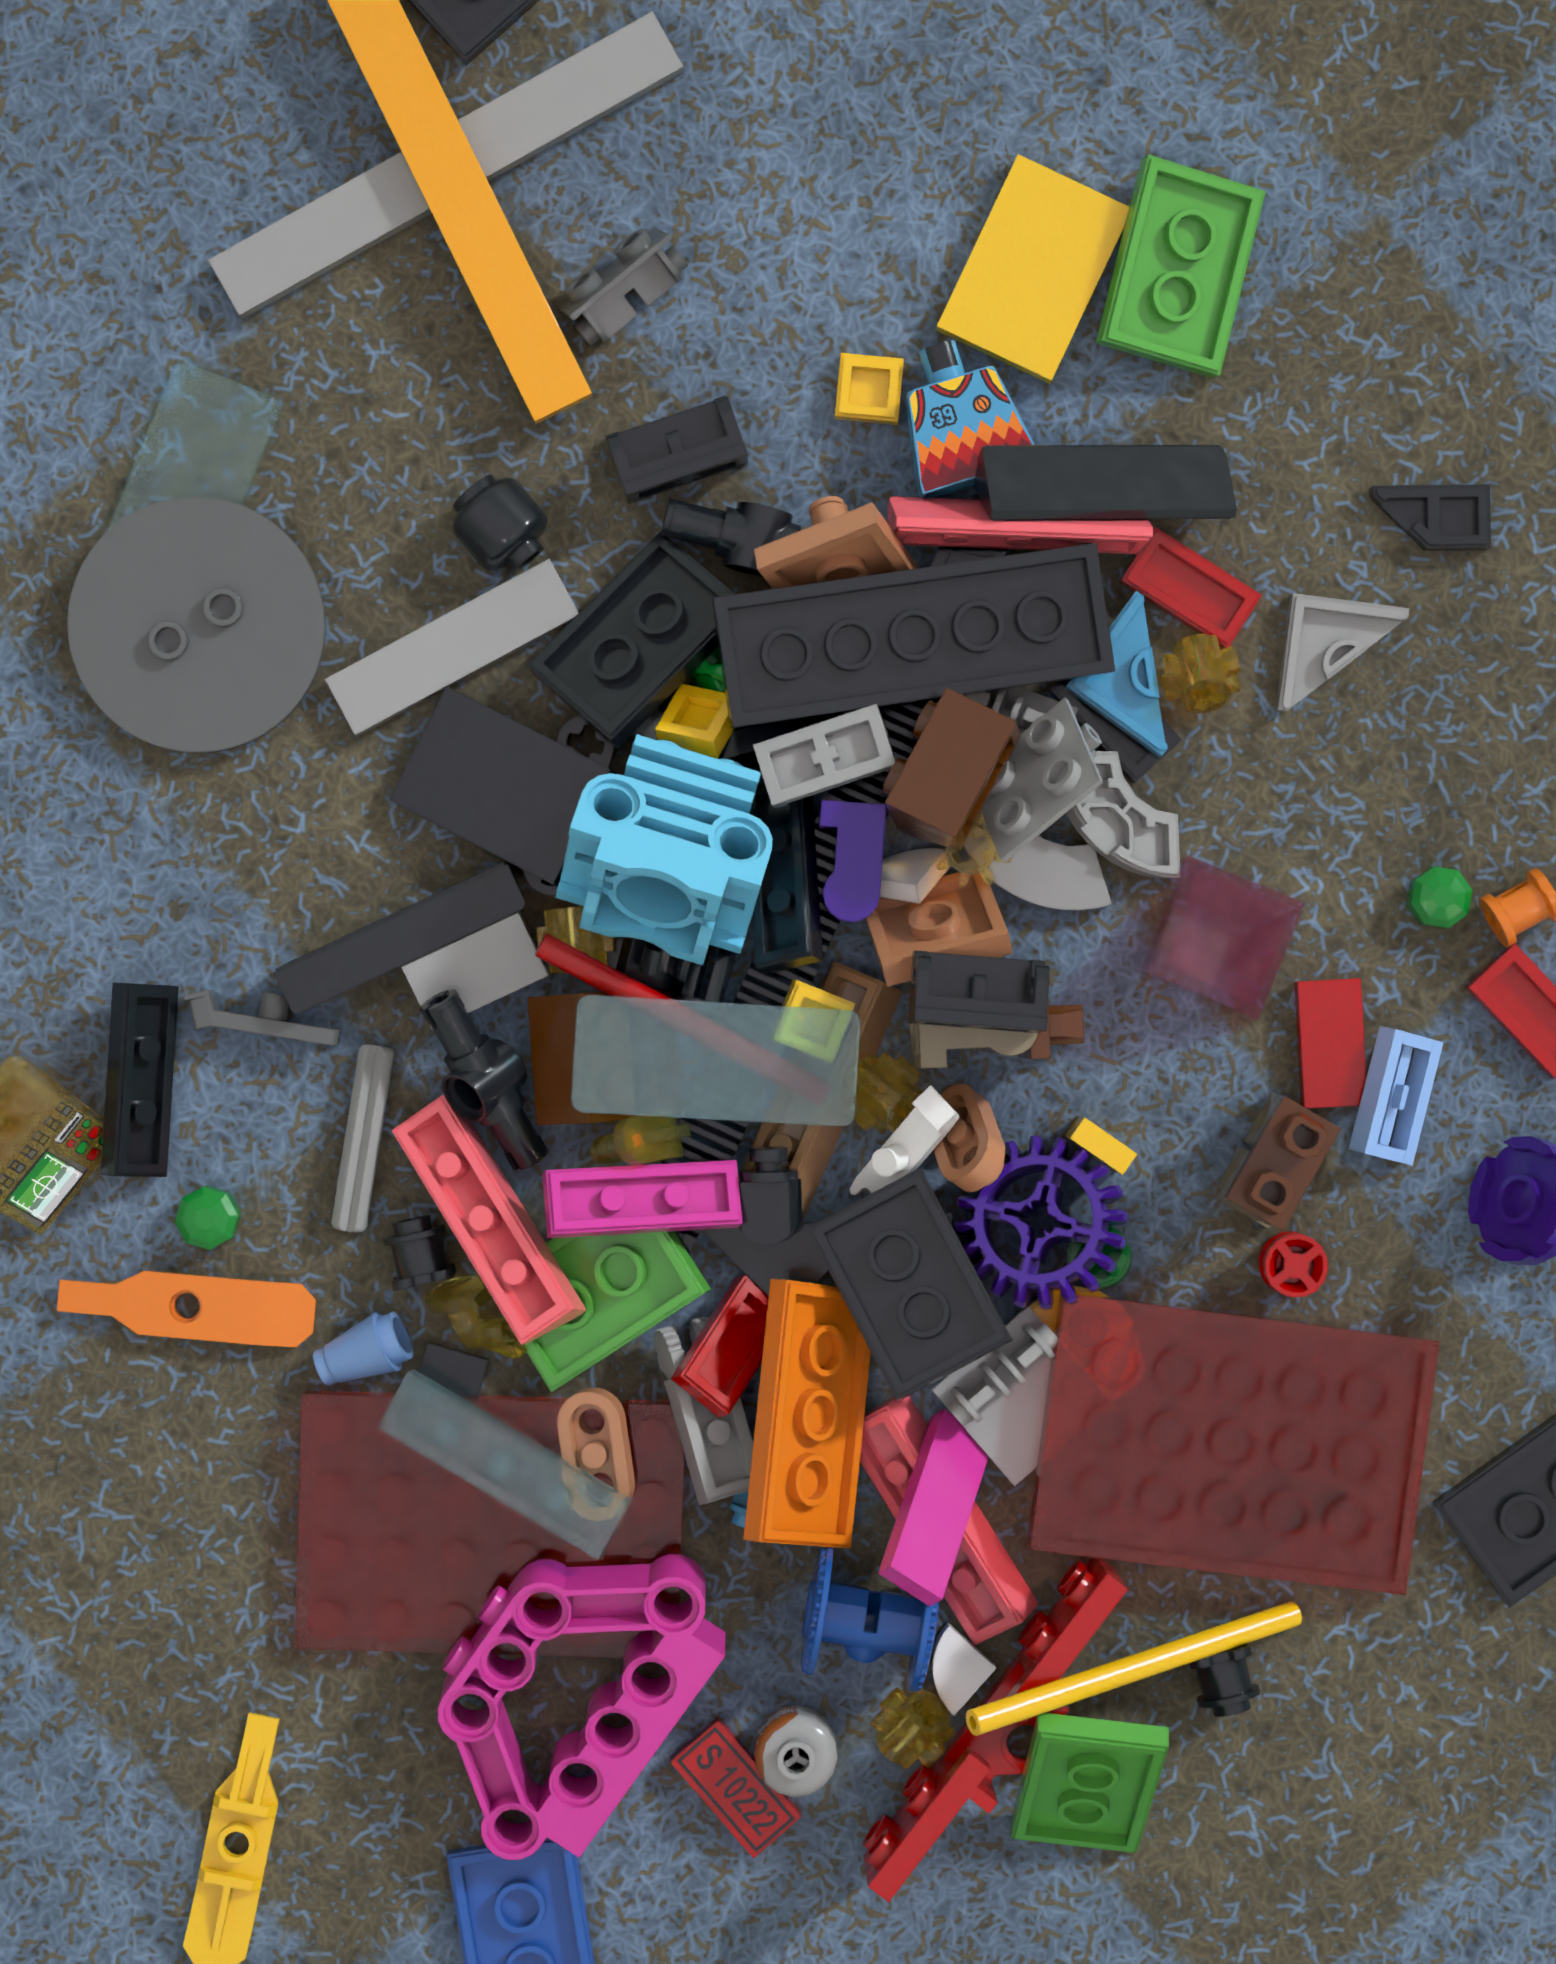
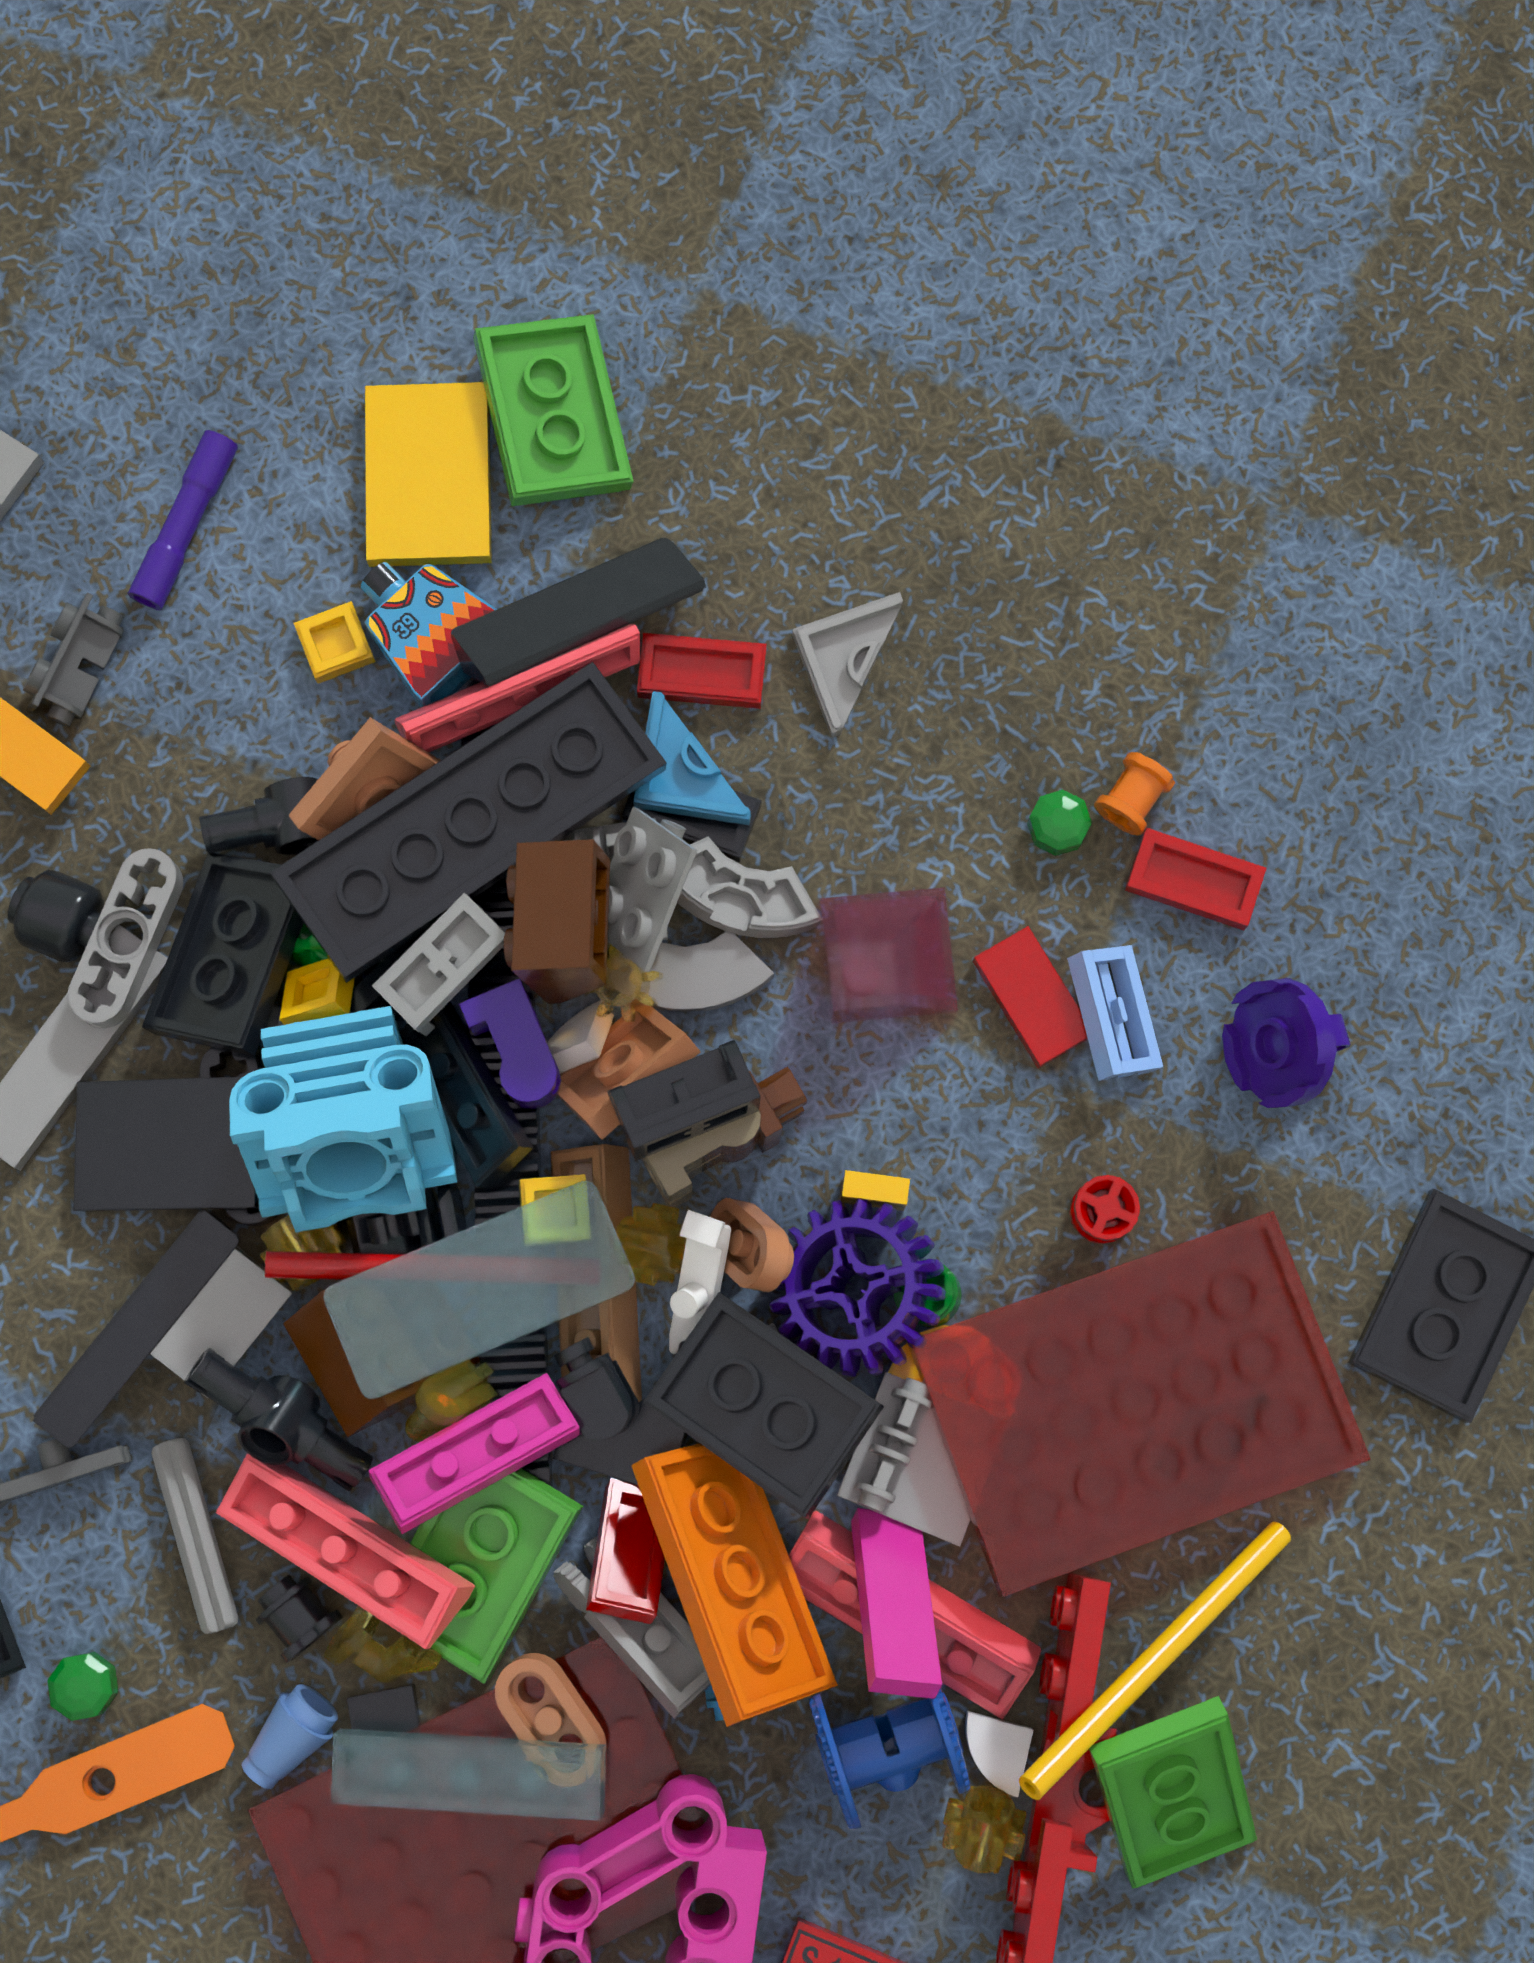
camera: 25 degrees left, 10 degrees down
(596, 556) = (91, 975): none -> light grey beam
(677, 449) = (191, 776): black hinge -> none
(794, 1729) = (872, 1890): light grey head -> none
(818, 172) = (198, 487): none -> dark purple piece
(1201, 673) = (747, 733): clear yellow gear -> none
(1226, 1681) = (1250, 1628): black brick -> none
(1278, 1169) = (1038, 1121): reddish brown hips -> none
(1439, 514) = (883, 504): black tile -> none

